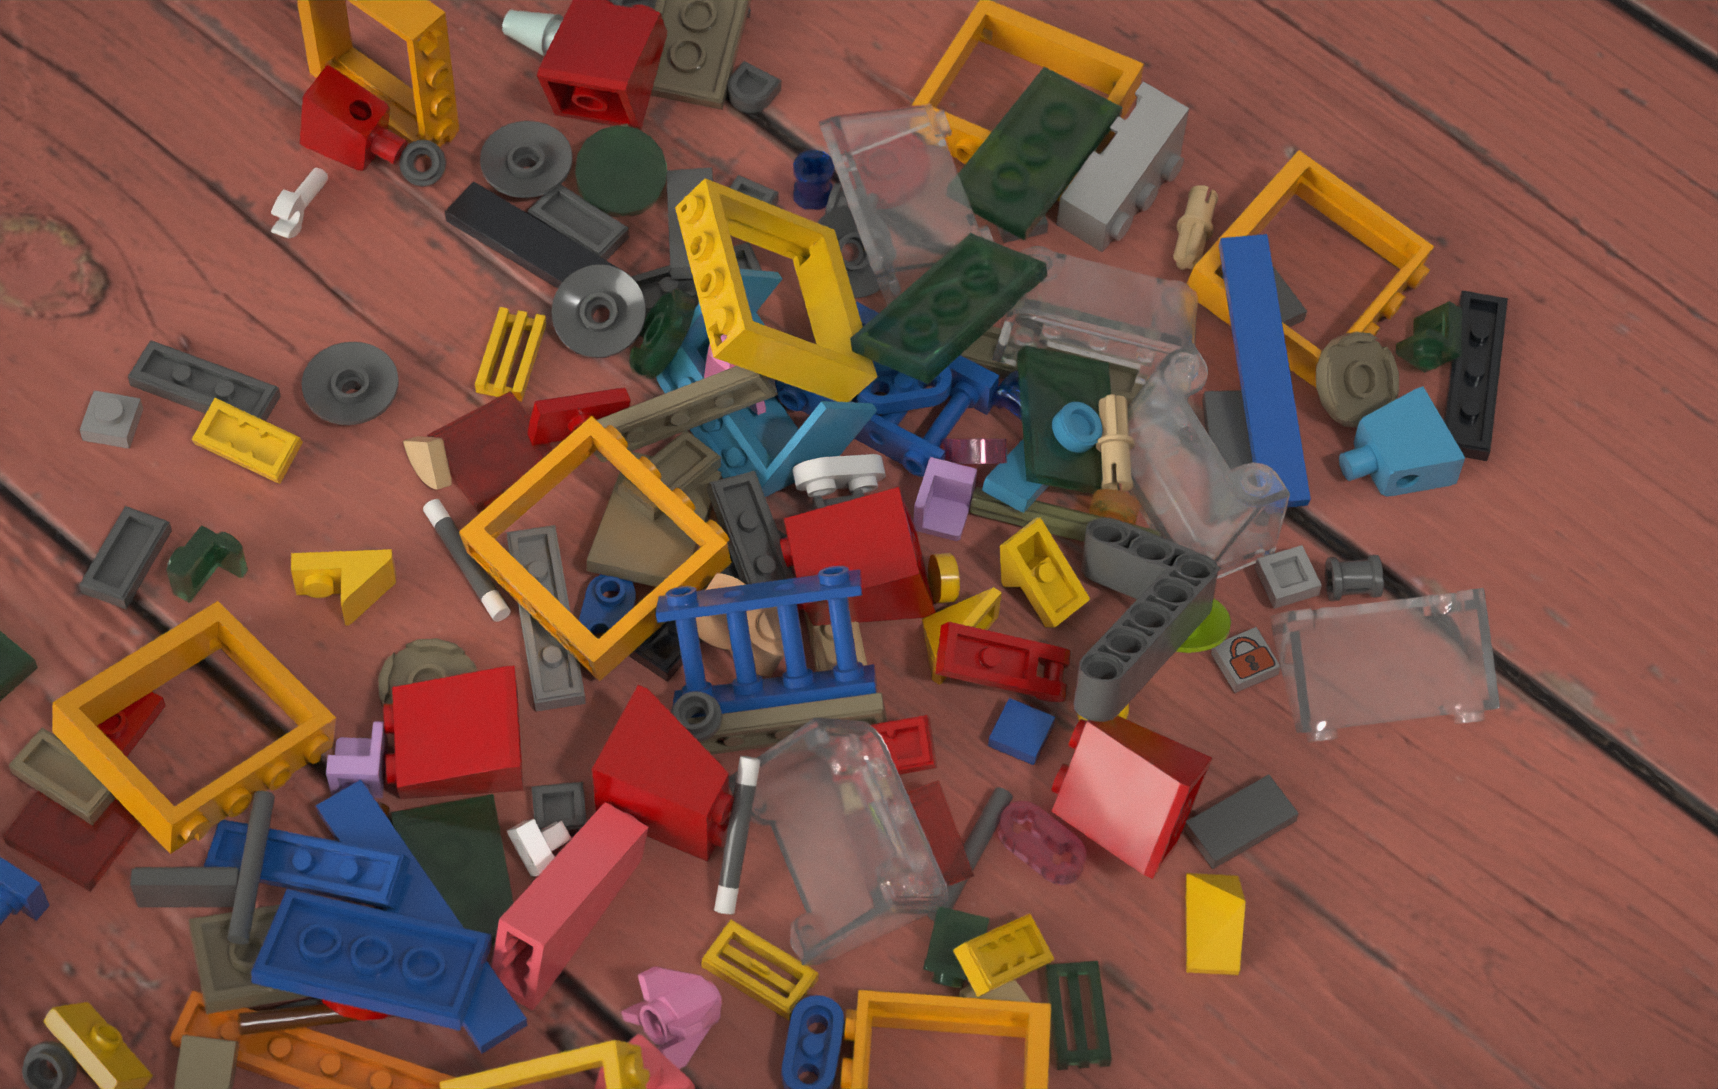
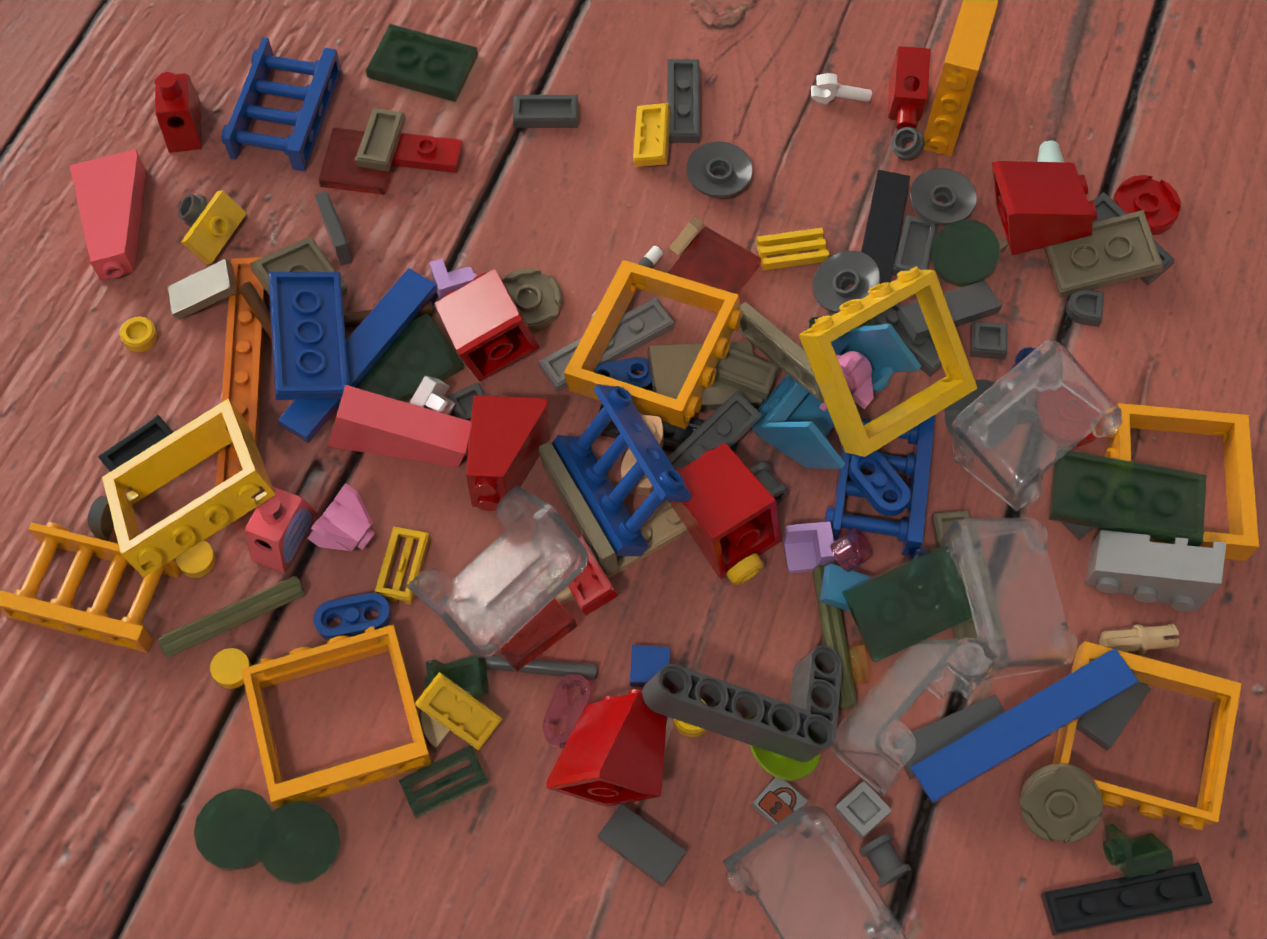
camera: 70 degrees right, 5 degrees up
(111, 419) = (636, 65): light grey plate -> none
(154, 665) = (453, 142): light orange window -> none
(197, 560) = (554, 144): clear green bracket -> none
(251, 867) = (350, 250): dark grey bar -> none
(316, 865) = (367, 281): blue tile -> none
(356, 575) = (577, 226): yellow slope -> none
(559, 417) = (756, 295): red plate -> none
(695, 703) = (548, 439): dark grey plate -> none
(737, 835) = (480, 507): dark grey bar -> none
(828, 474) = (780, 459): white plate -> none
(948, 308) = (941, 478): clear green tile -> none
(976, 611) = (706, 593): yellow slope -> none
(1002, 661) = (686, 625): red plate -> none
(1041, 570) = (775, 632): yellow slope -> none
(1077, 427) = (902, 608): dark azure tile -> none
(1115, 443) = (904, 640): tan axle -> none
(1214, 923) = (552, 852): yellow slope -> none
(1404, 447) = (1021, 860): dark azure torso -> none

